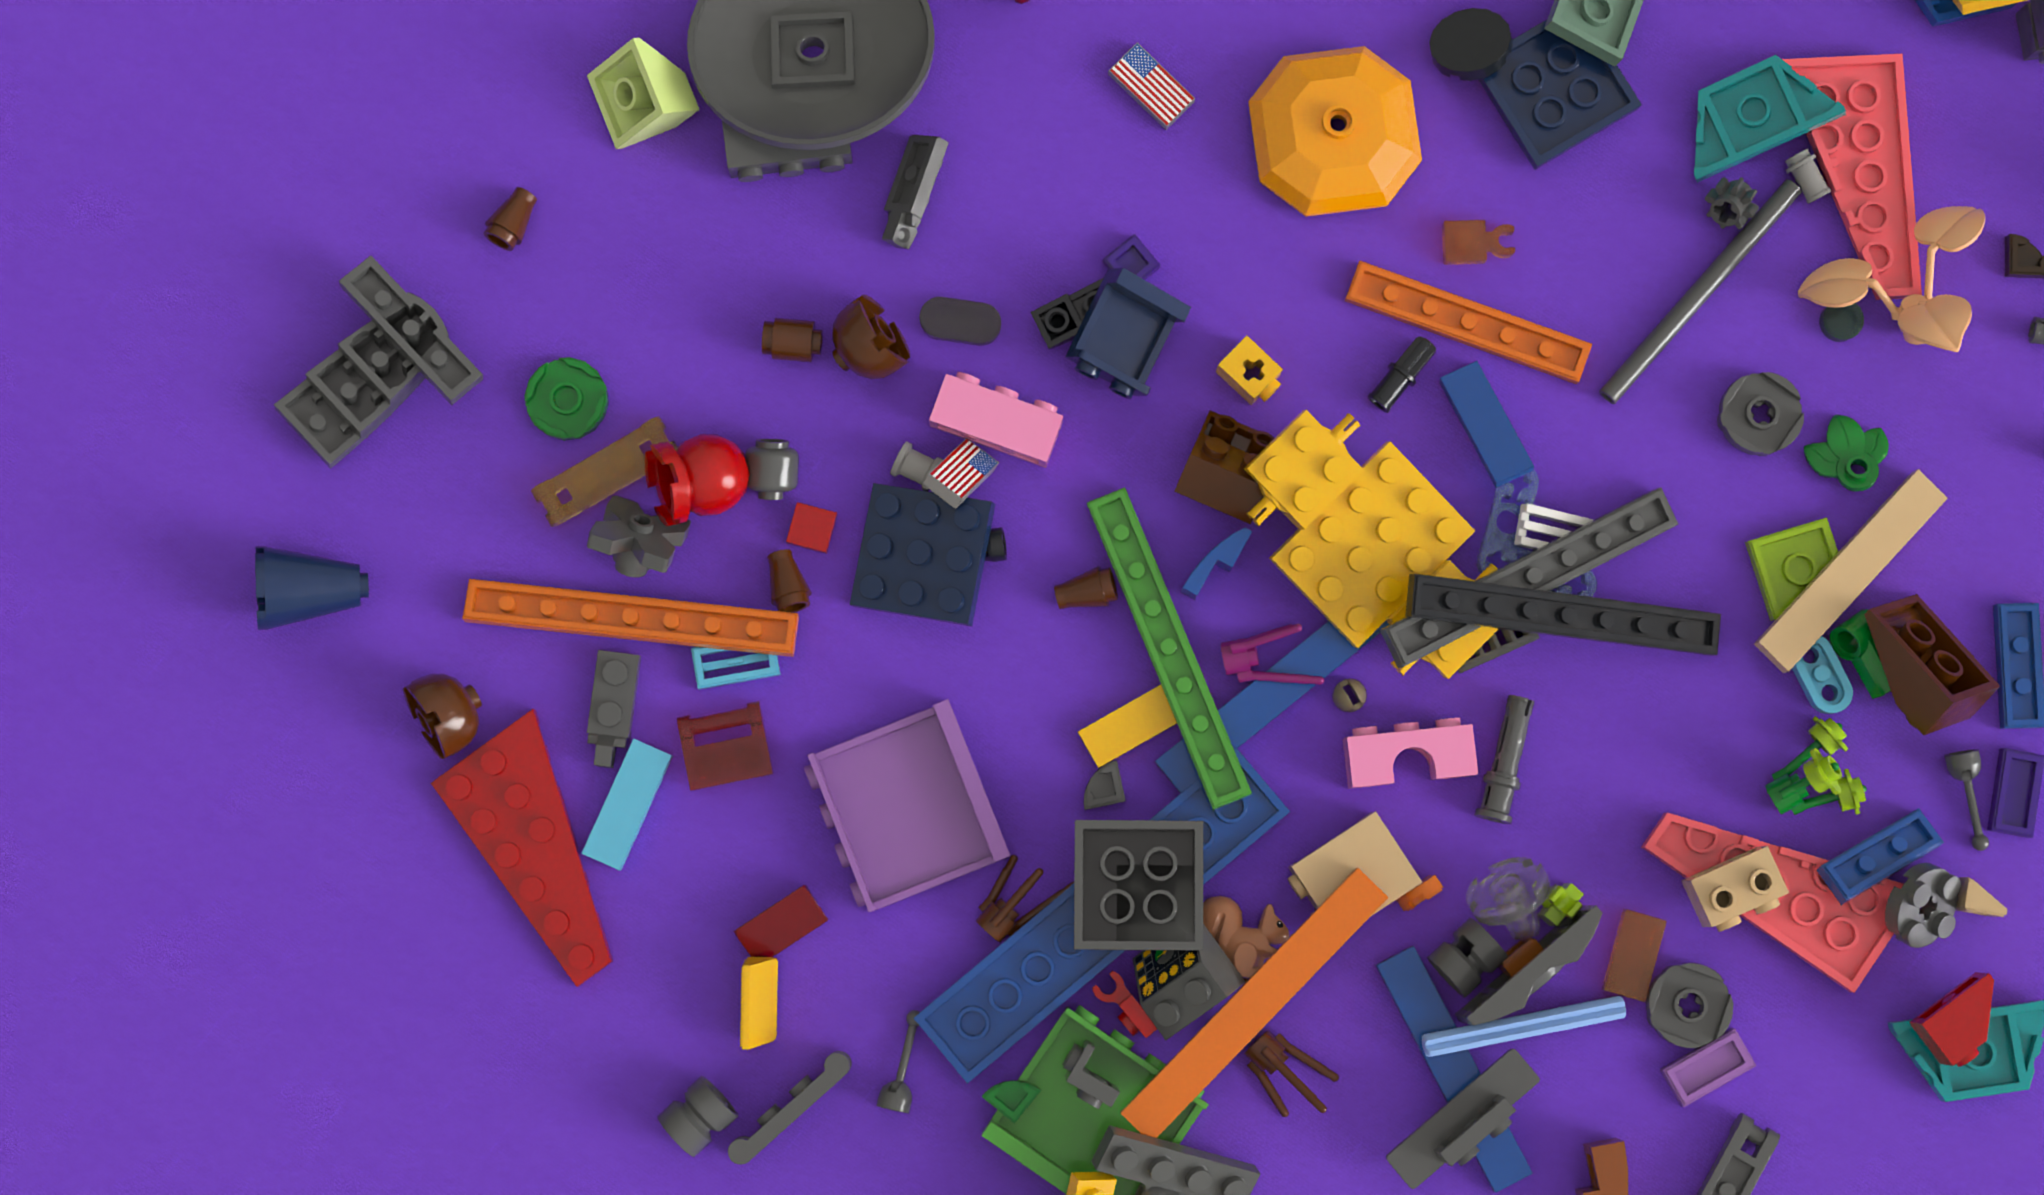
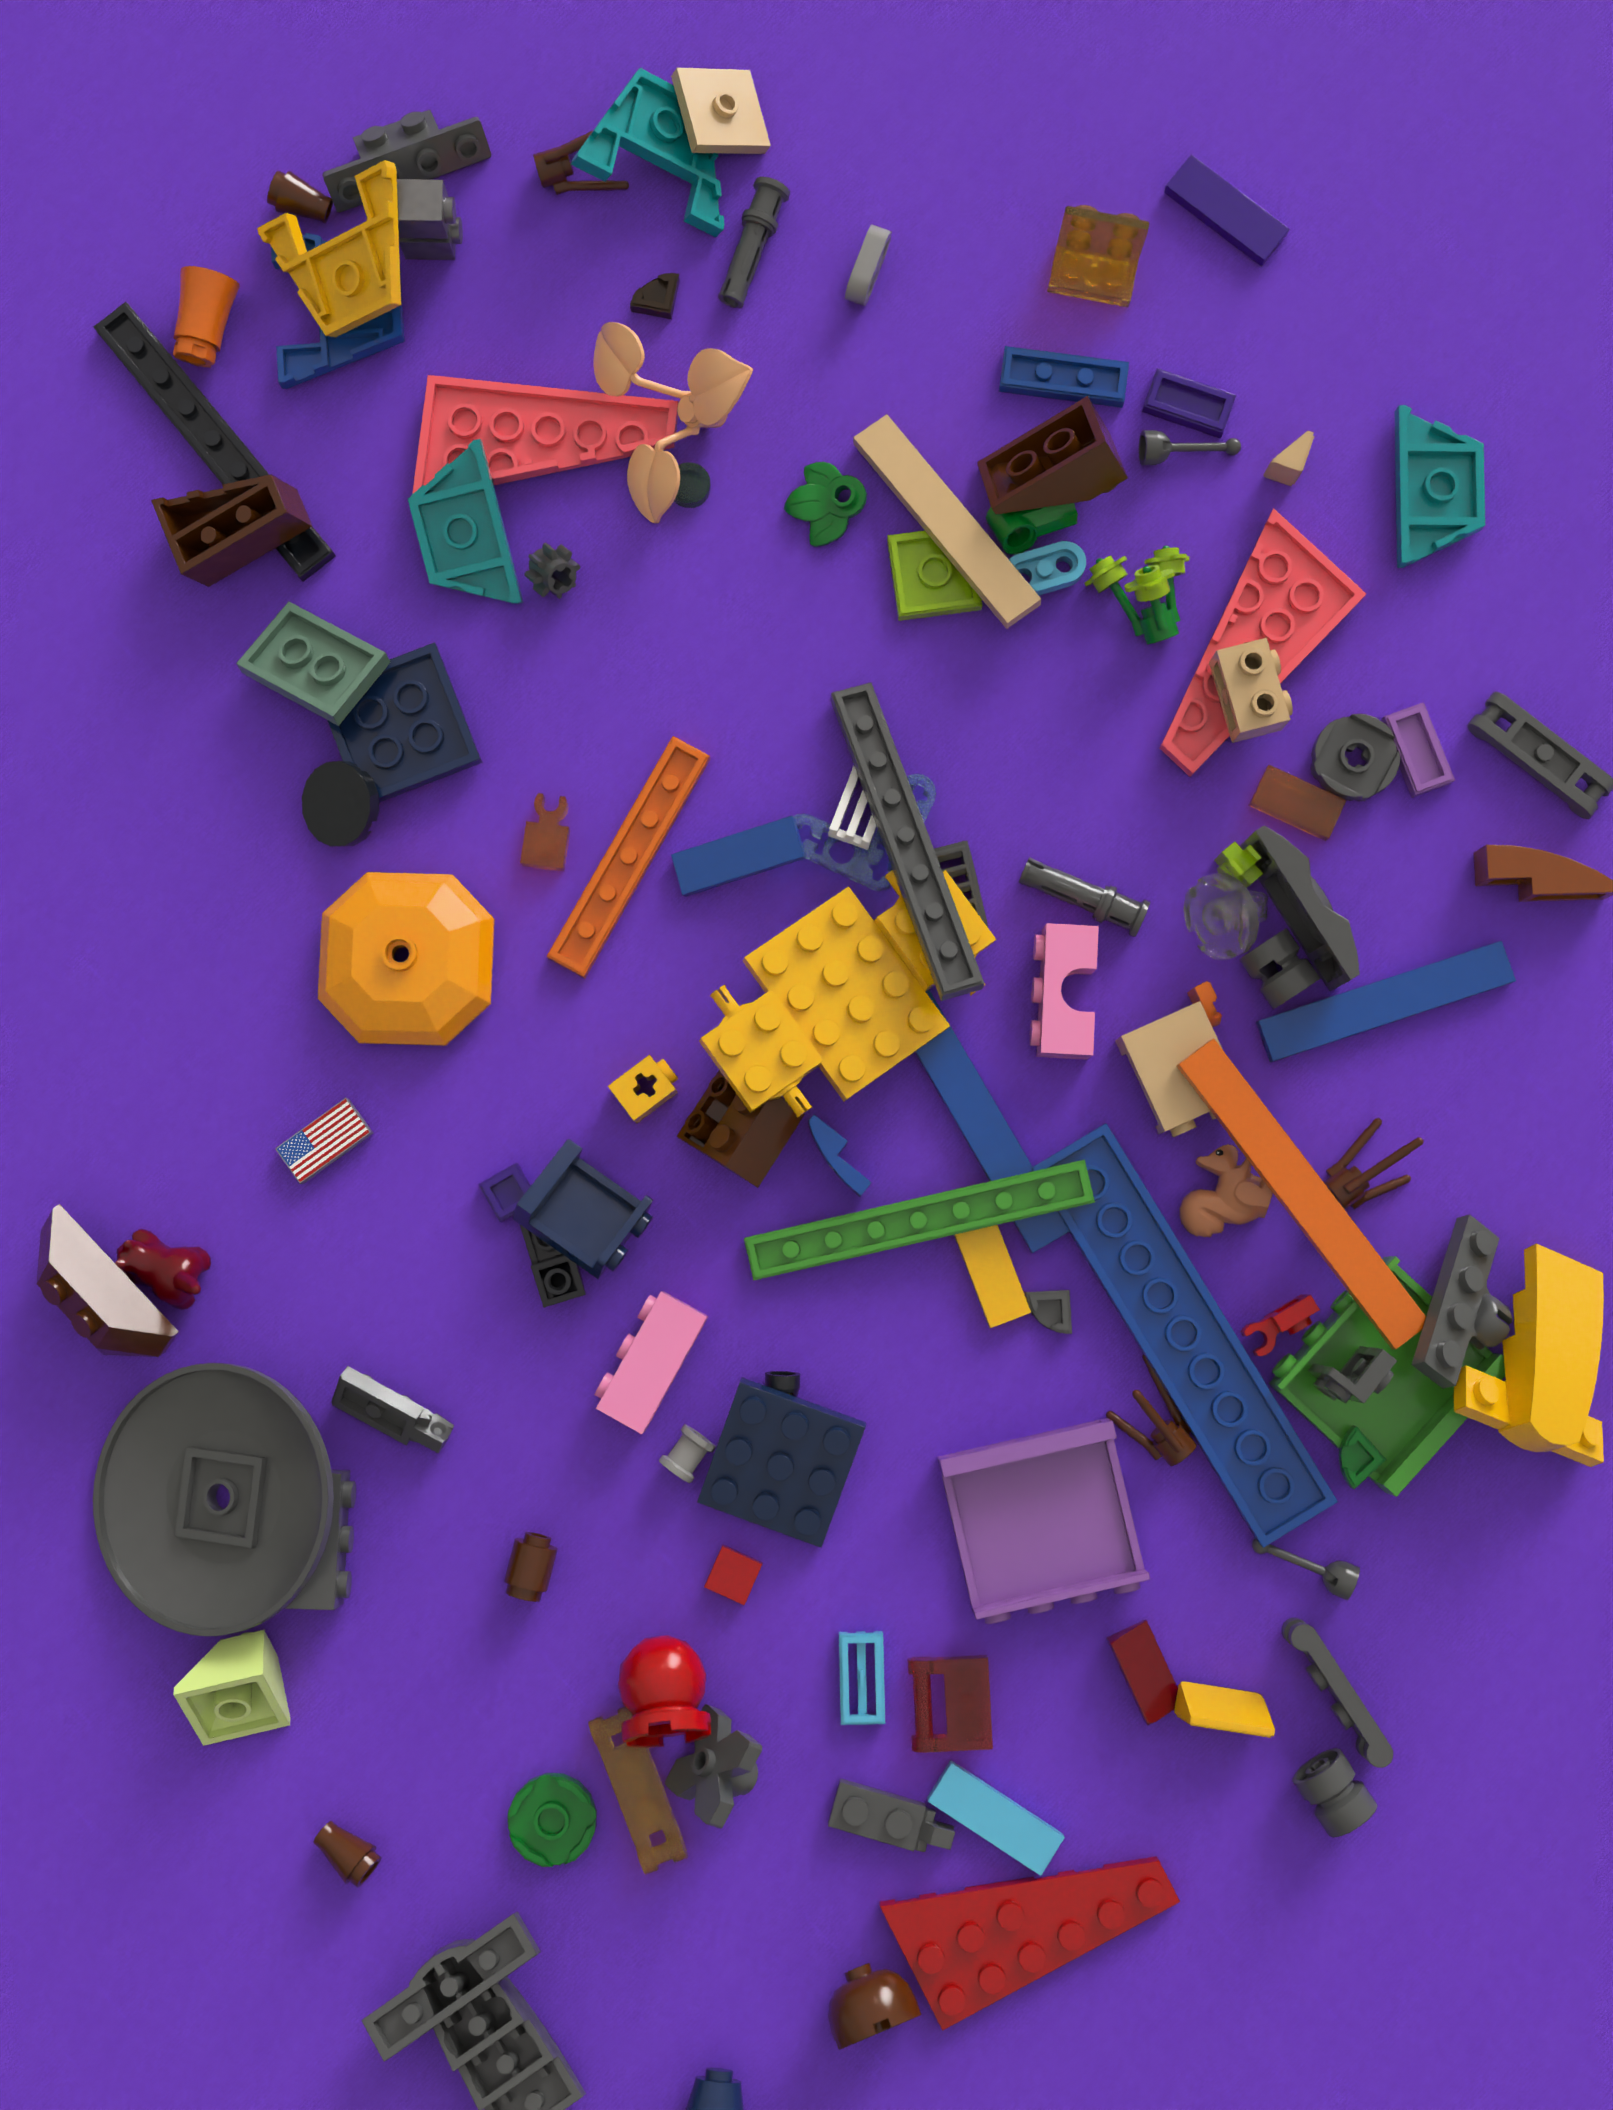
camera: 80 degrees left, 0 degrees up
(631, 617) = (798, 1786): orange tile -> none
(772, 468) = (664, 1609): dark grey head -> none
(787, 583) = (789, 1610): reddish brown cone -> none
(867, 341) = (547, 1486): reddish brown cylinder -> none
(960, 321) = (539, 1382): clear smoke tile -> none
(960, 473) = (703, 1409): tile -> none
(1089, 589) = (845, 1291): reddish brown cone -> none
(1138, 885) = (1166, 1293): dark grey slope -> none
(1183, 983) = (1262, 1260): dark grey slope -> none
(1242, 655) = (936, 1144): magenta plant -> none
(1342, 699) = (998, 1050): dark tan hinge -> none
(1402, 374) = (671, 932): black axle -> none
(1464, 1120) = (1445, 998): dark grey bracket -> none
(1520, 955) = (1284, 915): dark orange tile -> none
(1524, 1026) = (1355, 910): light blue axle -> none
(1562, 614) = (950, 816): black tile -> none
(1700, 291) = (637, 619): dark grey piece -> none
(1784, 410) = (770, 557): dark grey plate -> none
(1807, 175) = (536, 491): light grey pin -> none
(1880, 856) = (1236, 544): blue tile -> none
(1936, 895) = (1292, 510): dark grey plate -> none
(1958, 1021) = (1411, 497): red slope -> none

